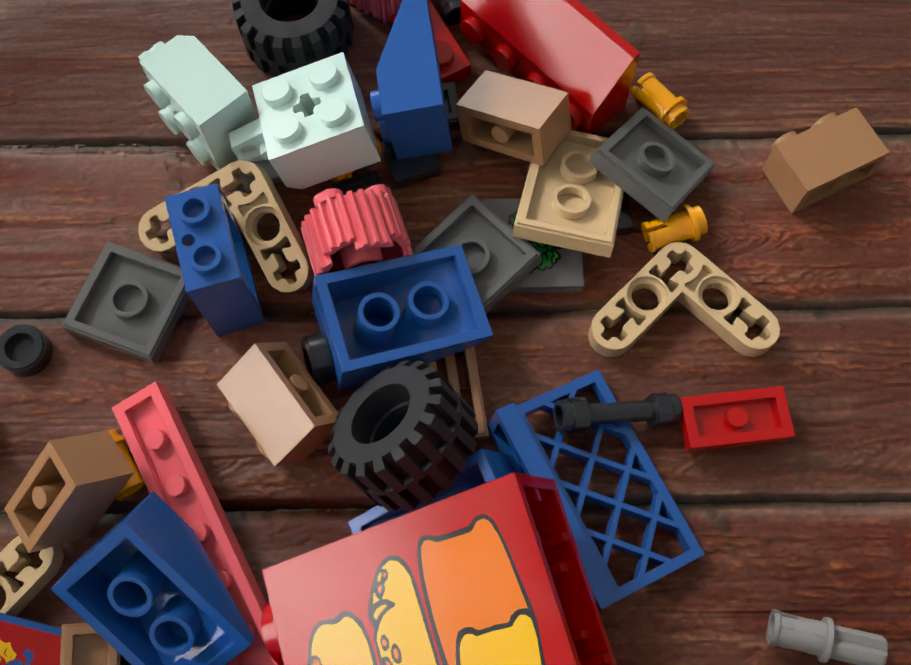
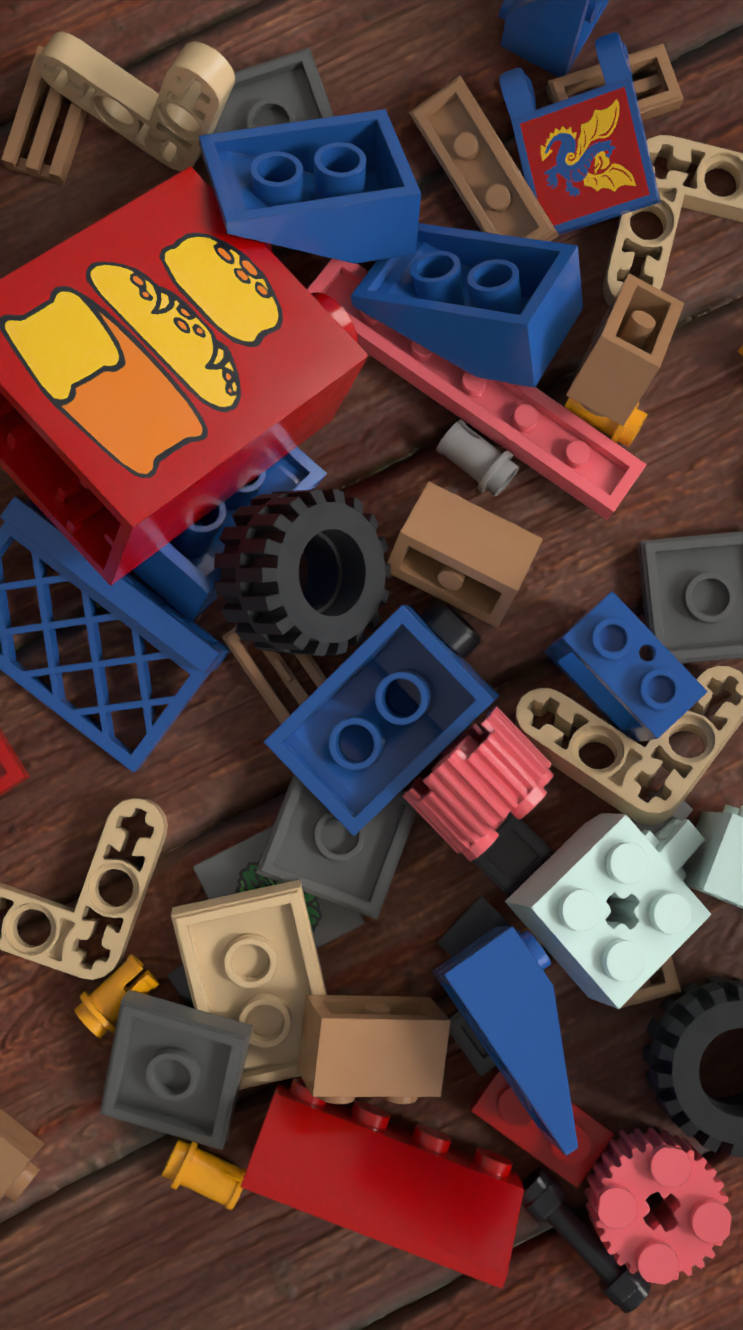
camera: 150 degrees right, 15 degrees up
(229, 475) = (478, 458): none -> light grey pin
(577, 415) = (127, 698): black bar -> none

